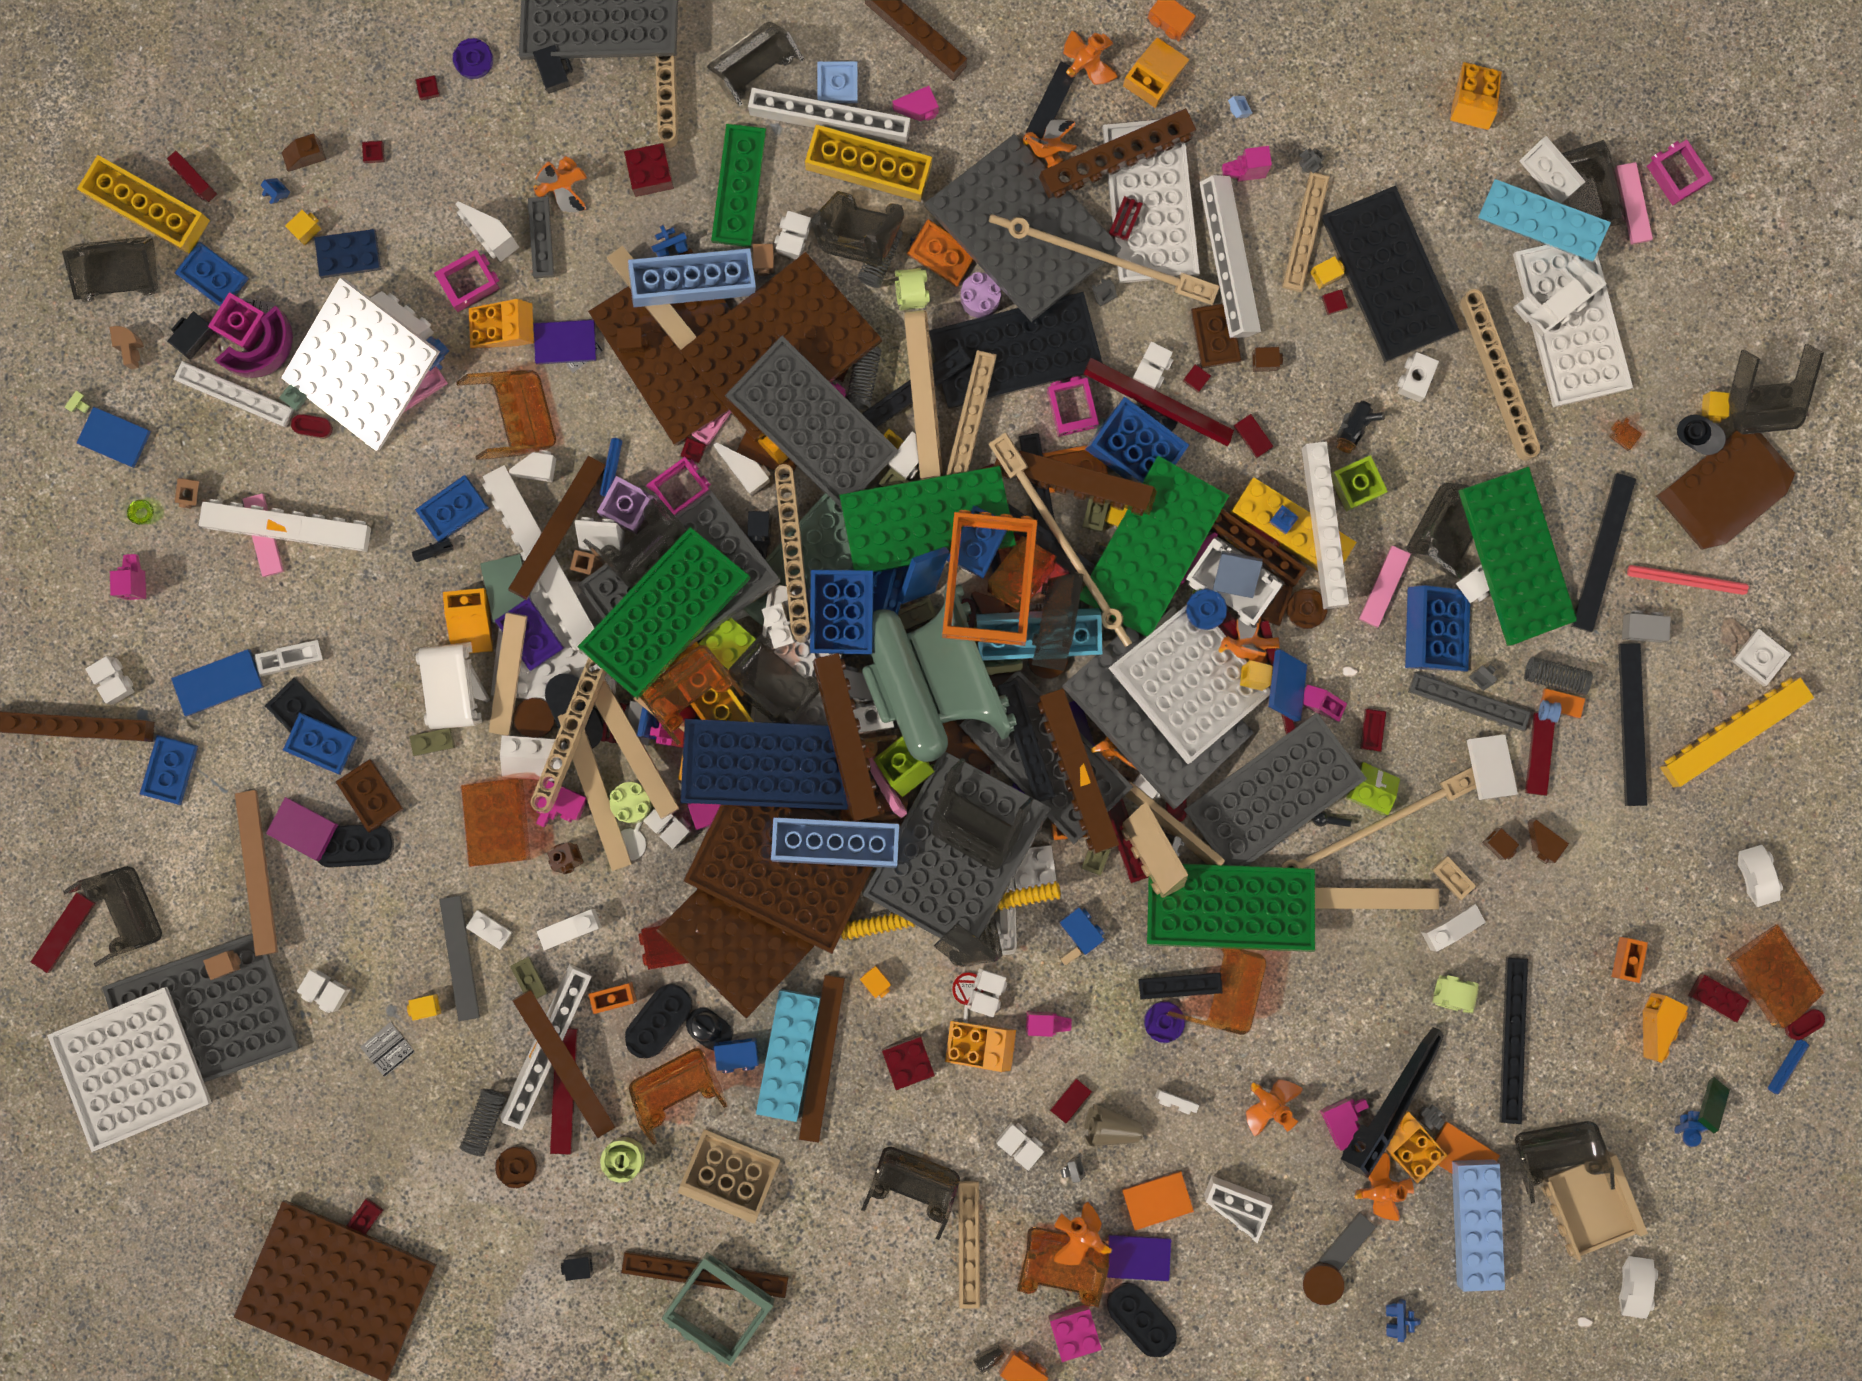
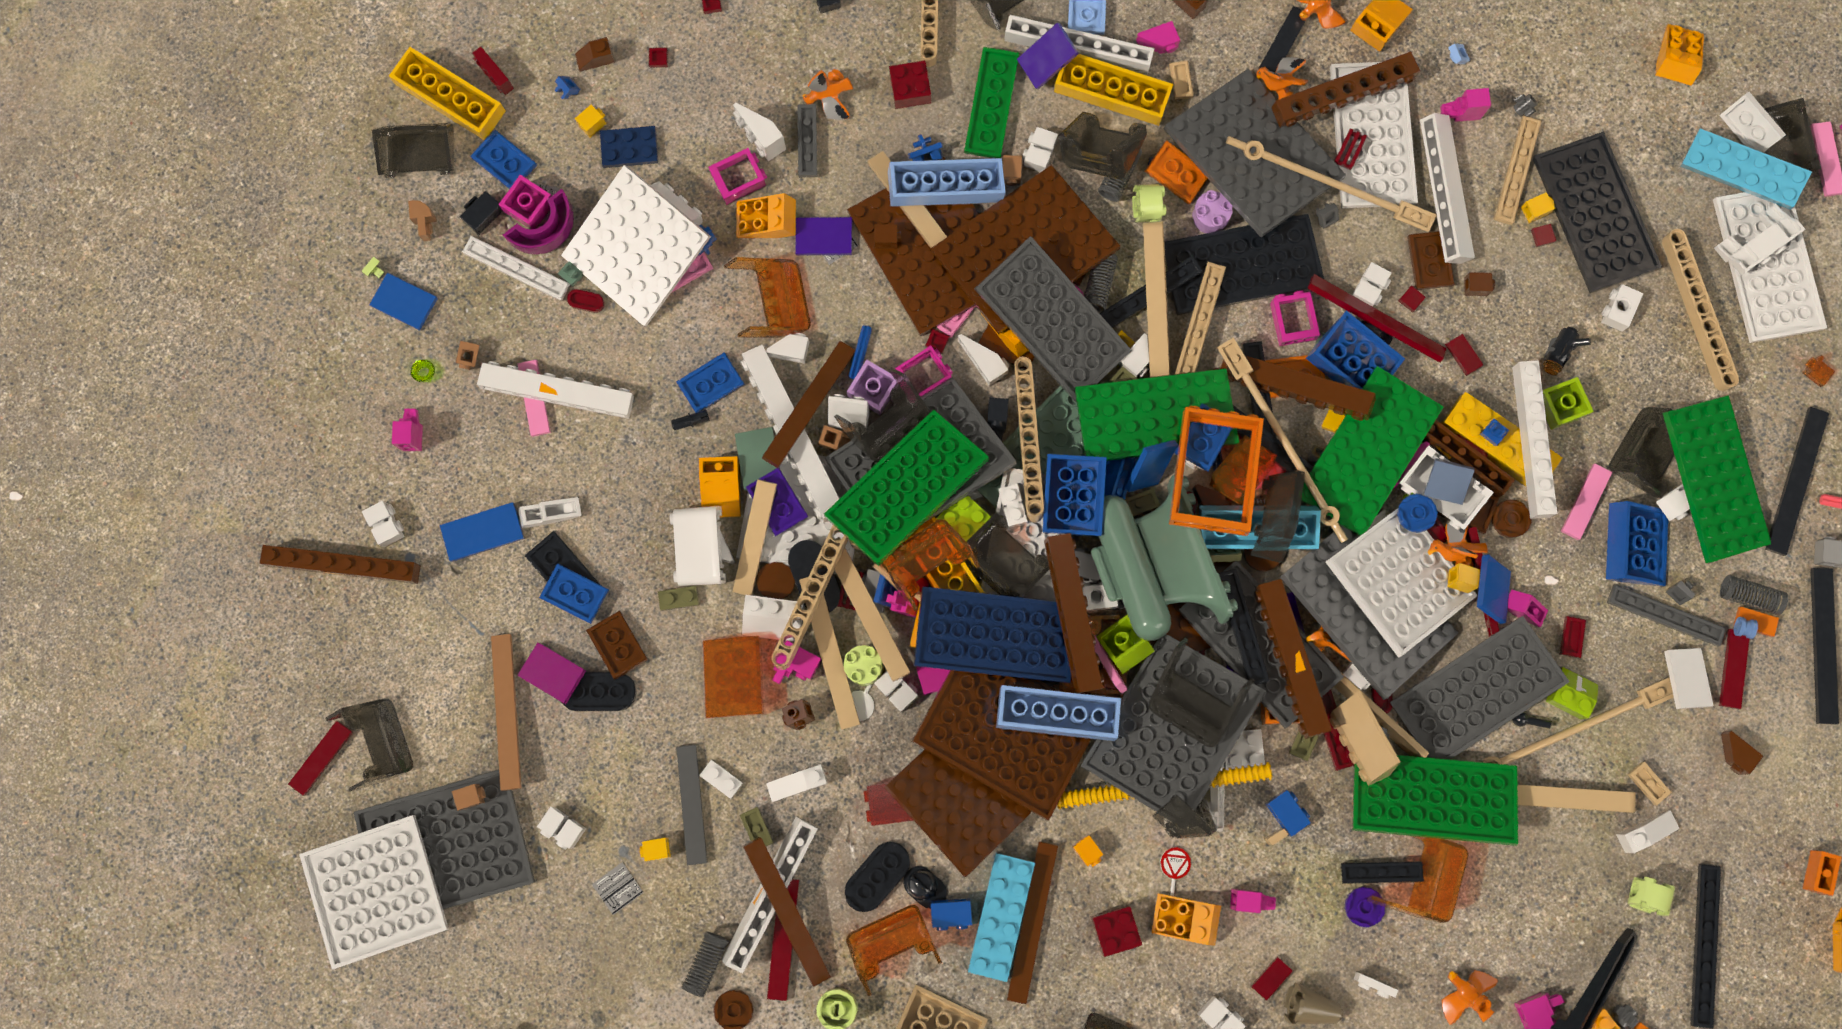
camera: 15 degrees right, 5 degrees down
(168, 770) = (431, 610): blue tile -> none
(612, 997) = (836, 851): orange brick -> none
(795, 132) = (1047, 56): none -> dark purple tile
(942, 150) = (1181, 80): none -> tan tile
(986, 1003) = (1198, 858): white piece -> none
(1094, 516) = (1312, 420): olive plate -> none
(1501, 844) = (1696, 753): reddish brown brick -> none

